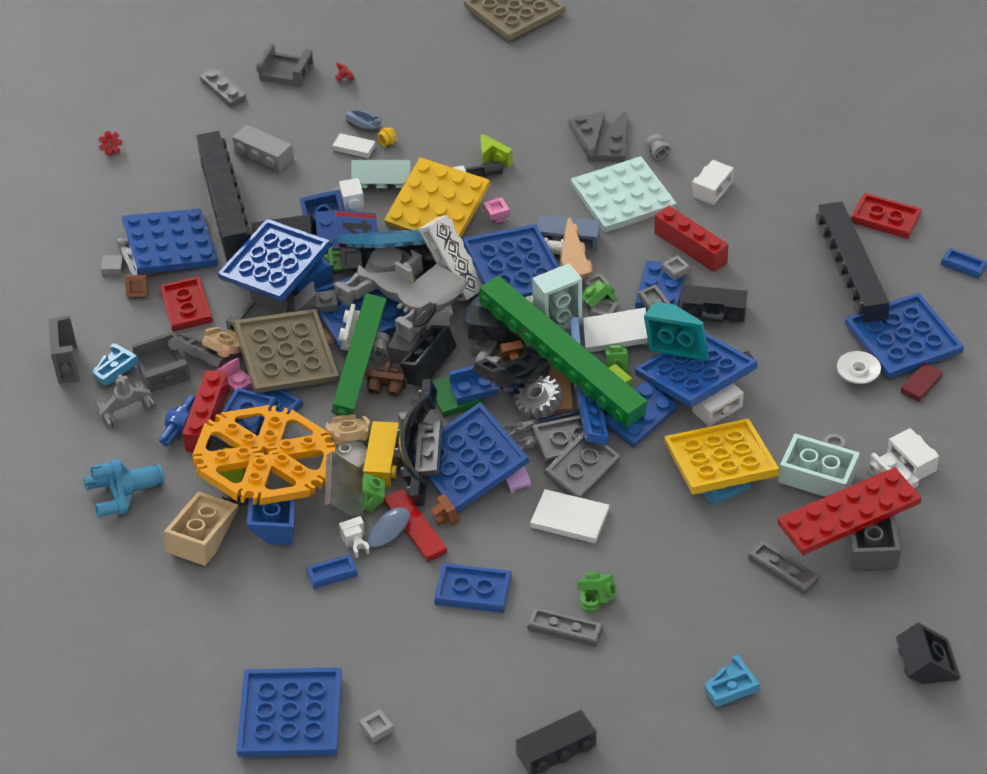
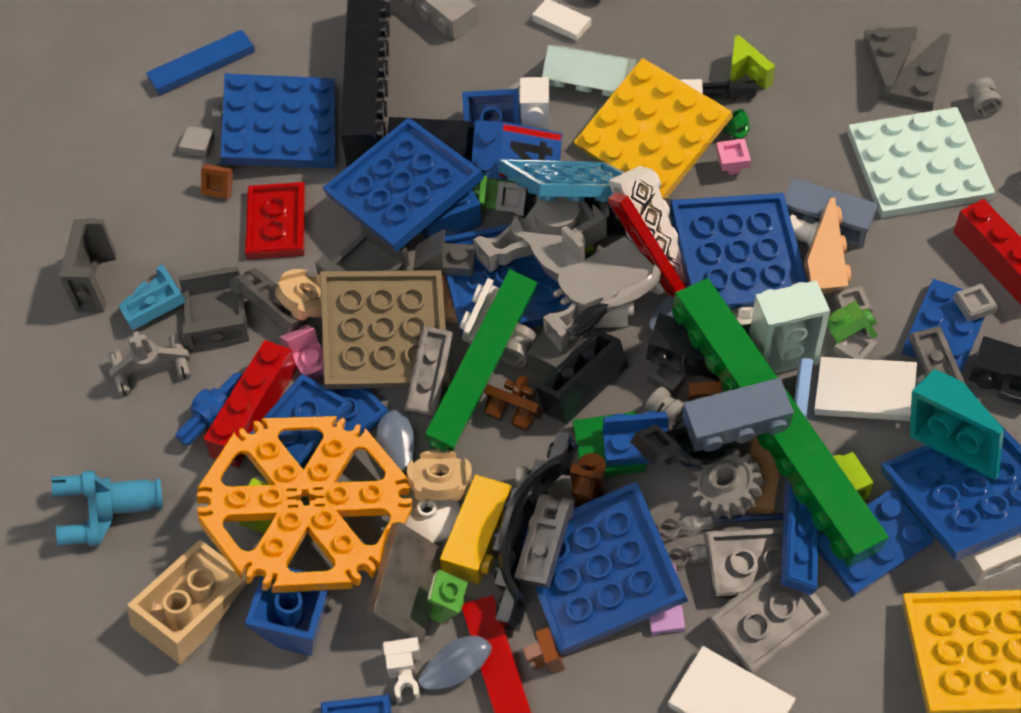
camera: 15 degrees right, 10 degrees up
(97, 214) = (200, 62): none -> blue tile
(312, 411) = (396, 438): none -> sand blue arm
(323, 371) = (428, 372): none -> flat silver tile
(387, 136) = (609, 14): yellow plate -> none
(447, 408) = (588, 478): none -> reddish brown hips
(452, 262) = (645, 242): none -> red tile
(493, 189) = (739, 119): none -> green tile
(536, 347) = (737, 415): none -> sand blue brick
(617, 355) = (857, 437): bright green bracket -> none

